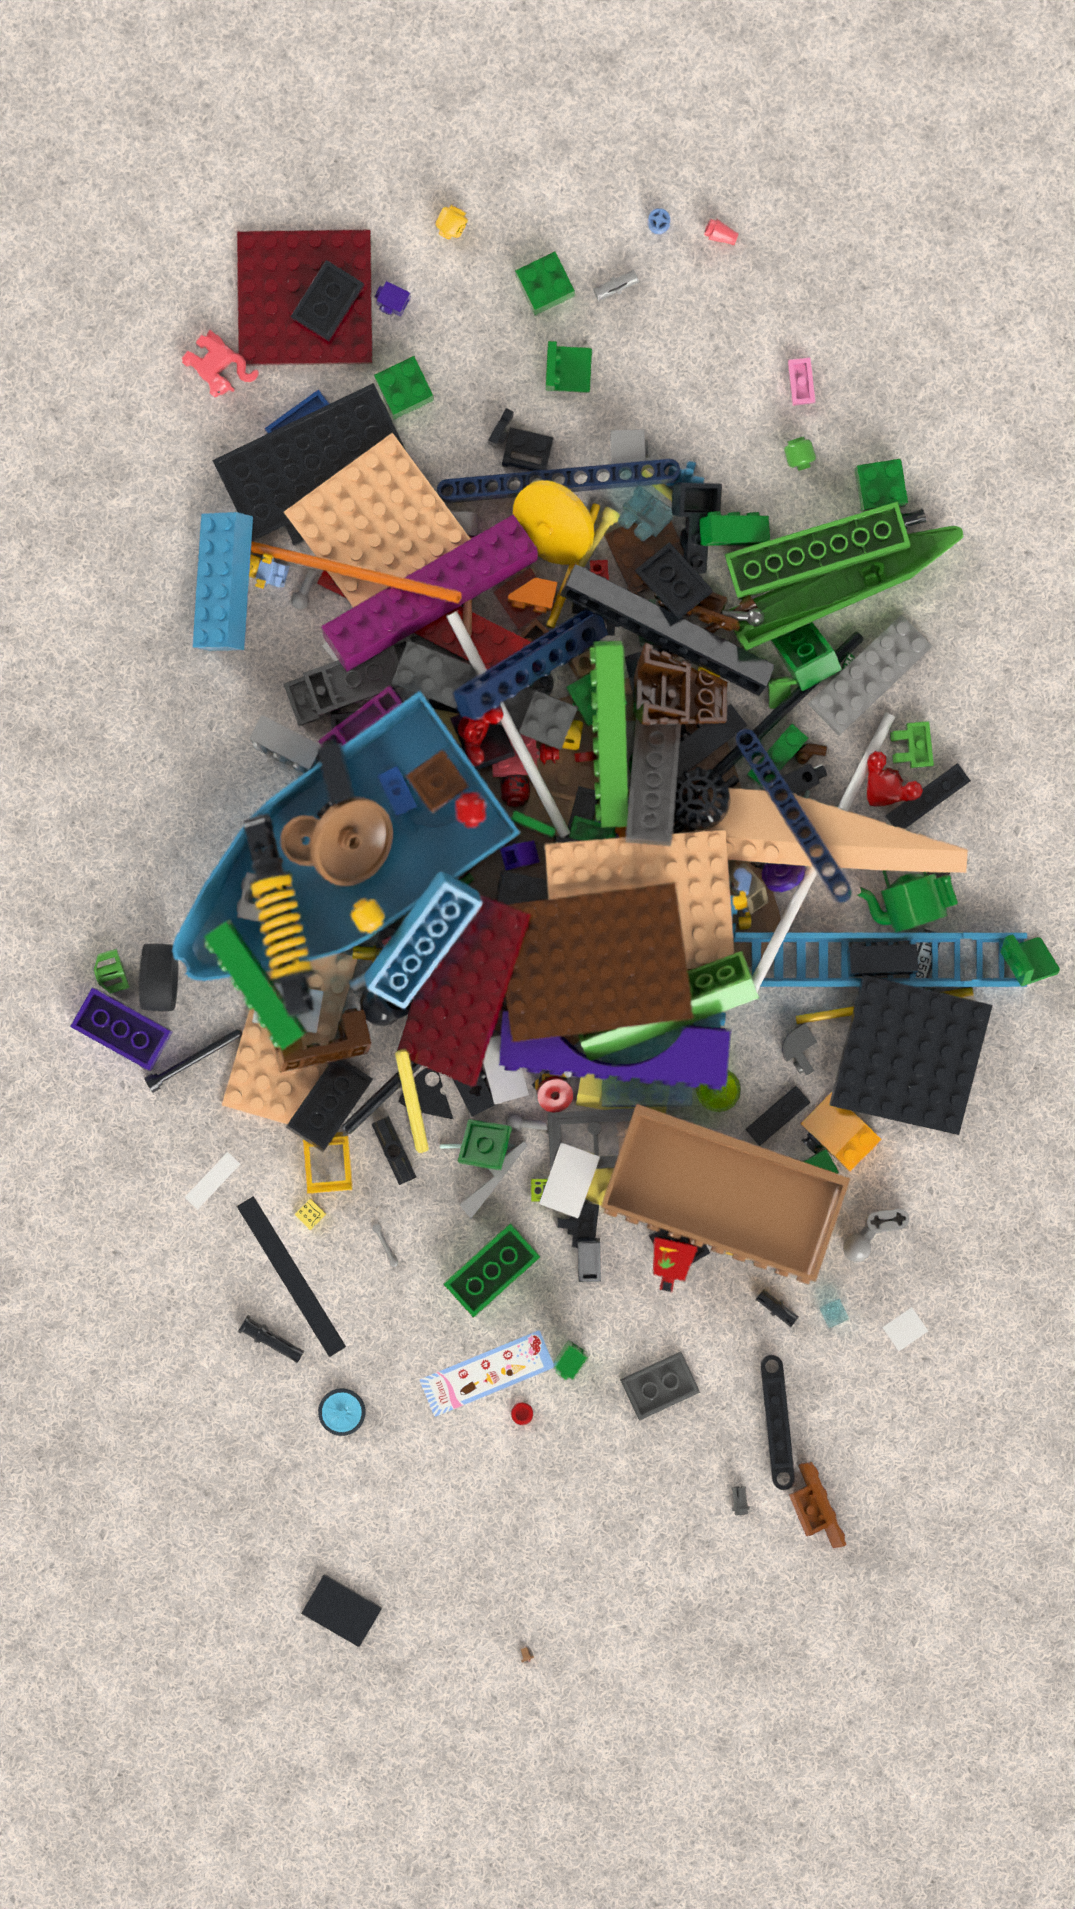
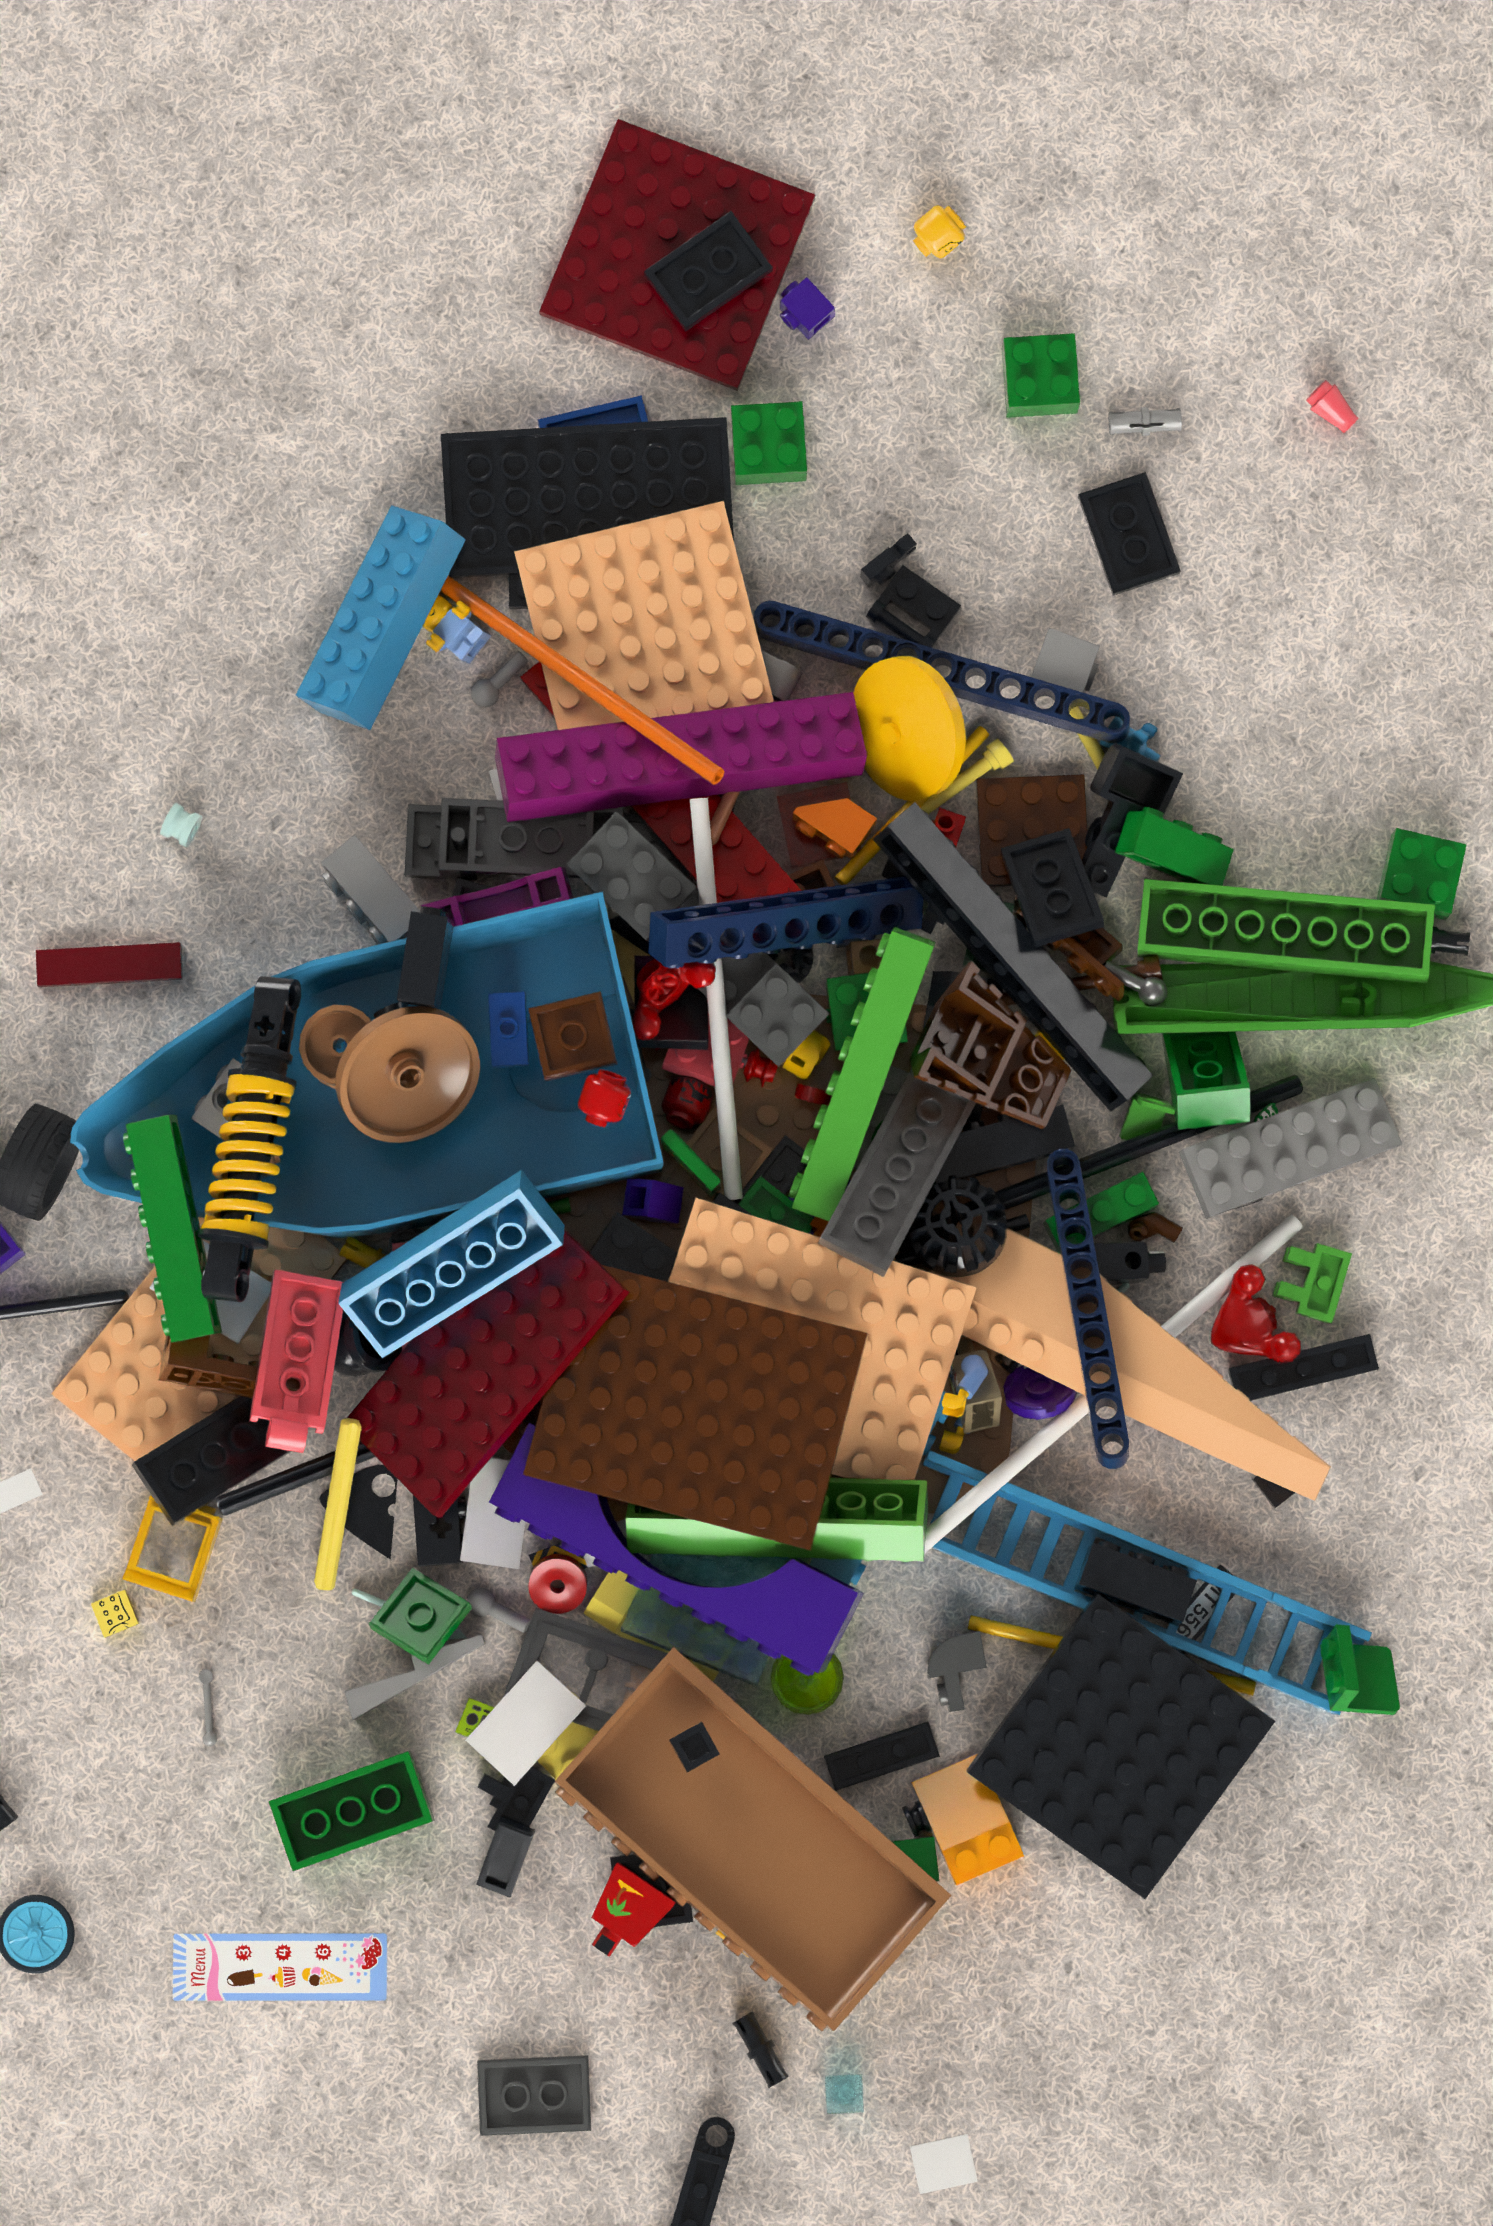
camera: 25 degrees right, 5 degrees down
(150, 846) = (109, 964): none -> dark red tile
(157, 749) = (181, 825): none -> light aqua wheel
(215, 361) = (506, 294): coral animal -> none
(291, 1276) = (47, 1697): black sticker -> none
(355, 1020) = (300, 1345): none -> coral hinge
(367, 915) = (384, 1193): yellow head -> none
(400, 1165) = (280, 1594): black piece -> none
(522, 1413) = (307, 2050): red tile -> none
(568, 368) = (1023, 513): green bracket -> none
(570, 1360) = (411, 1998): green brick -> none
(633, 355) = (1129, 533): none -> black tile
(647, 512) = (1054, 770): clear light blue hips -> none
(659, 216) = (1250, 346): medium blue wheel -> none
(672, 1155) = (694, 1747): none -> black plate
(800, 453) = (1318, 777): bright green head -> none
(801, 381) = (1363, 672): bright pink plate -> none
(858, 1246) = (922, 2005): light grey beam -> none
(911, 900) = (1216, 1511): green piece -> none

